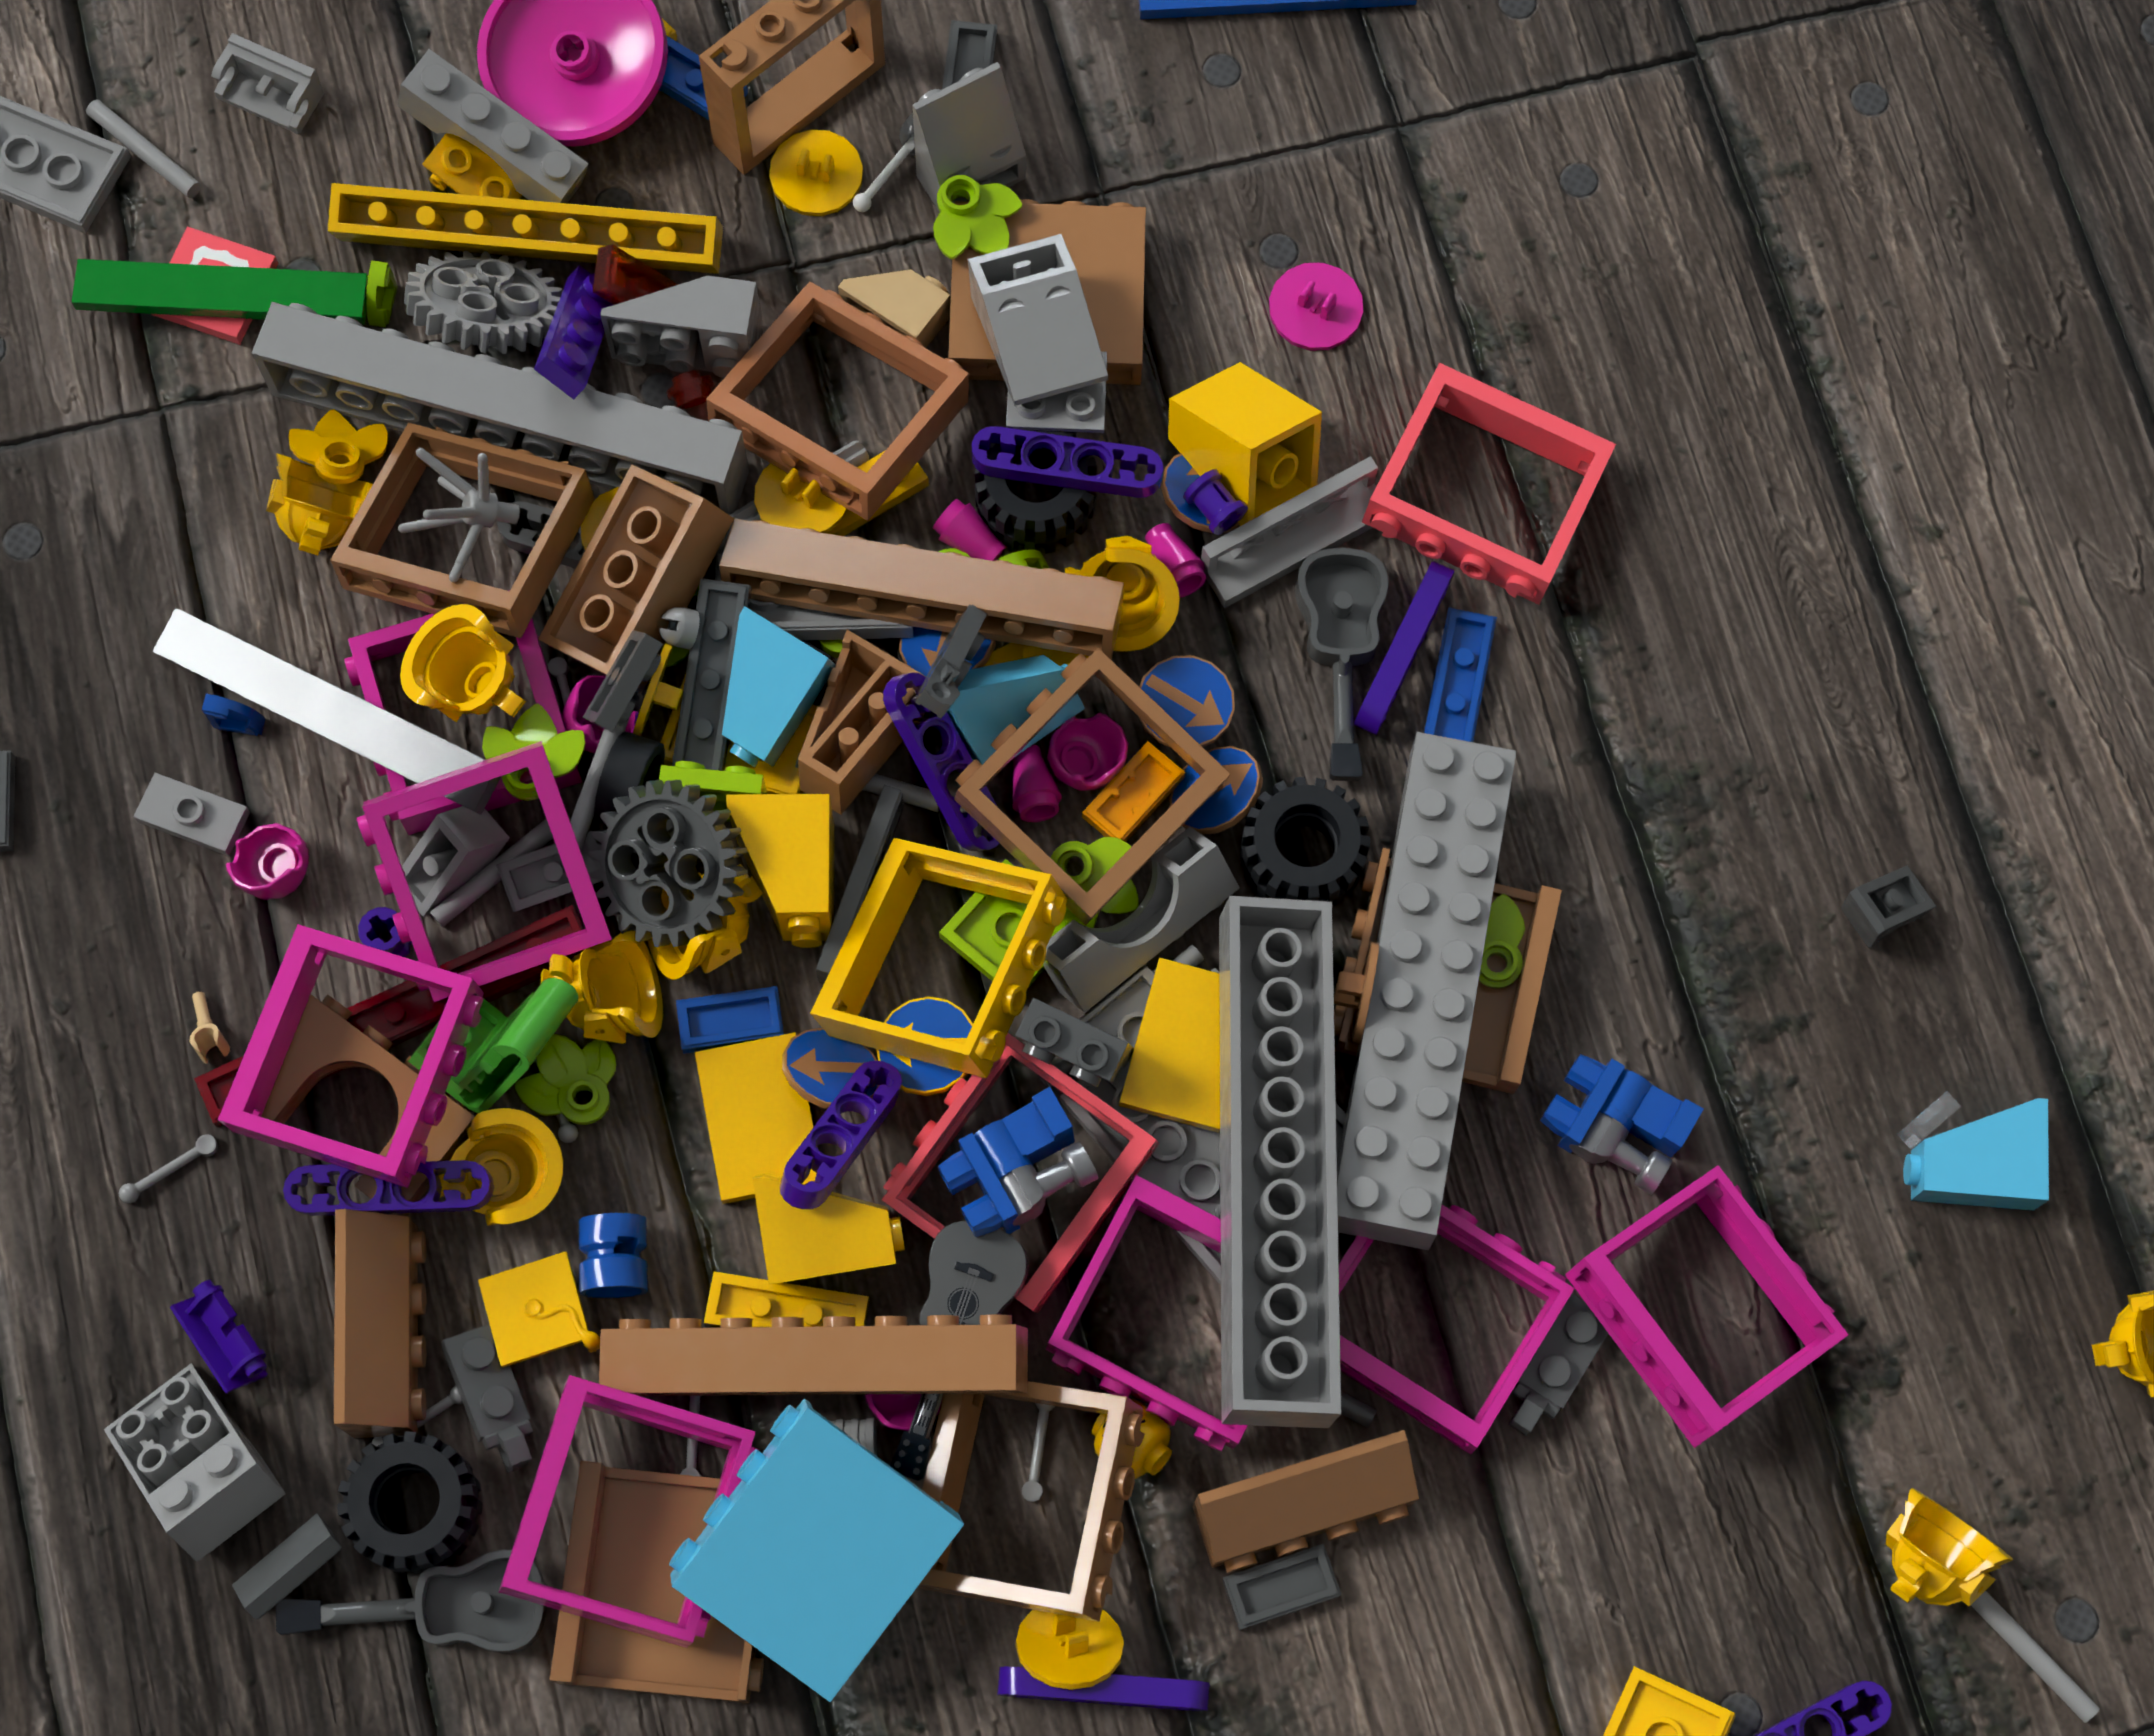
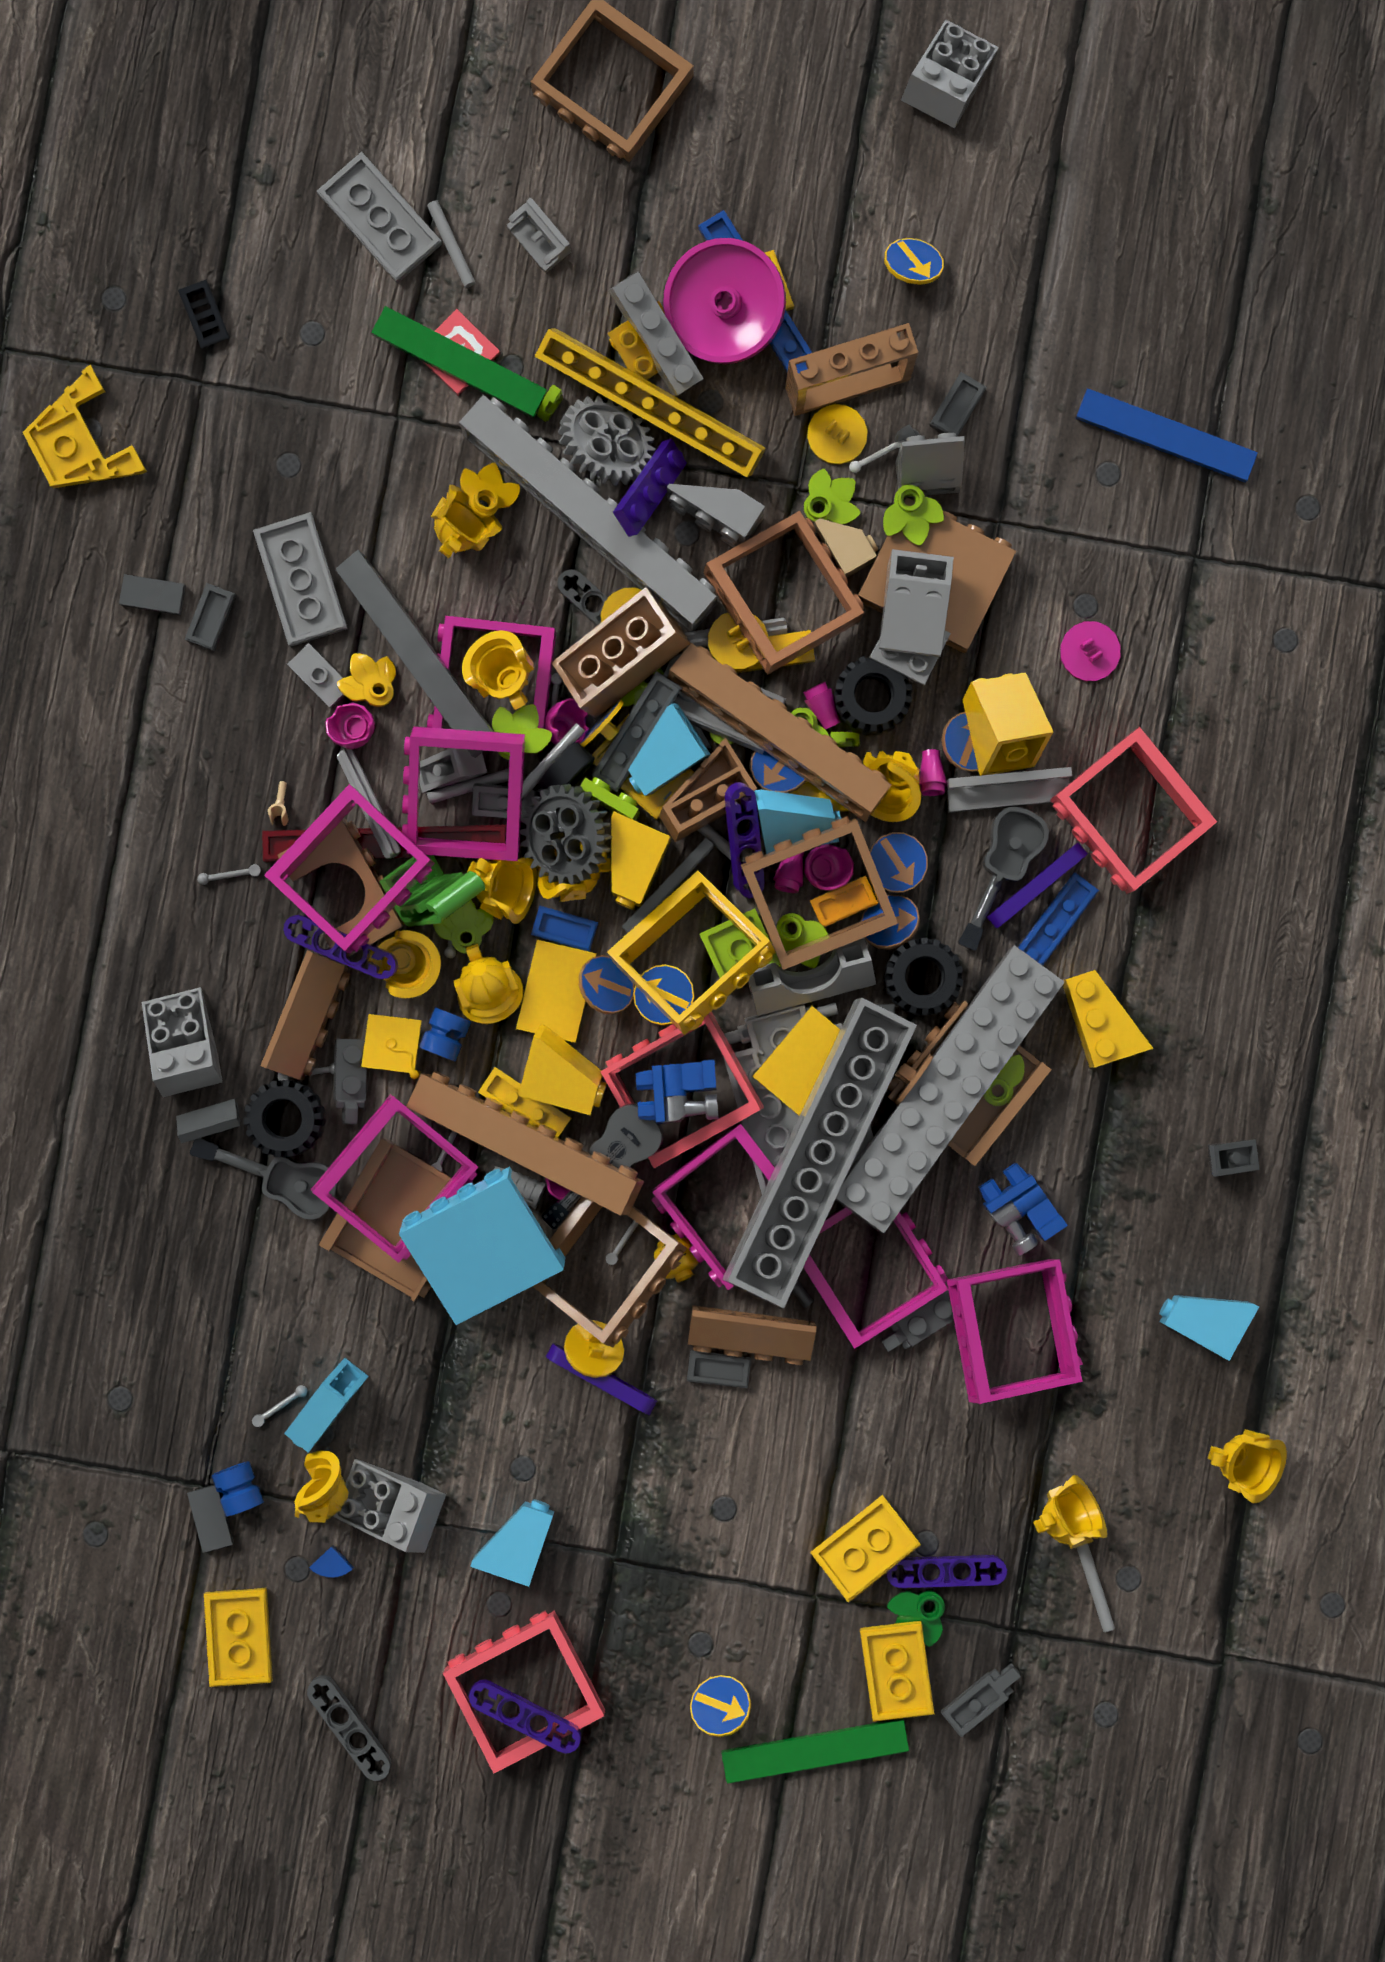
camera: 30 degrees right, 15 degrees up
(105, 691) = (300, 579): none -> light grey tile
(222, 1345) = (219, 983): dark purple hinge -> none
(232, 715) = (364, 629): blue tile -> none
(266, 783) = (365, 677): none -> yellow plate
(367, 982) = (358, 779): none -> light grey axle
(376, 921) = (388, 792): dark purple bush -> none
(432, 591) = (565, 537): medium nougat window -> none
(477, 509) = (547, 578): light grey plant -> none
(614, 698) = (577, 724): dark grey plate -> none
(624, 277) = (696, 466): clear red plate -> none
(648, 1157) = (487, 988): none -> yellow helmet
(682, 627) = (633, 695): light grey hinge -> none
(690, 389) = (702, 544): clear red plate -> none
(837, 1131) = (592, 1029): dark purple beam -> none
(848, 252) = (834, 496): none -> lime plate
(950, 666) = (769, 792): dark grey hinge -> none
(1068, 453) = (891, 699): dark purple beam -> none
(1089, 1049) = (741, 1036): dark grey plate -> none
(1215, 502) = (968, 755): dark purple bush -> none
(1597, 793) = (1101, 1021): none -> yellow wedge
(1929, 1120) = (1190, 1285): clear tile -> none

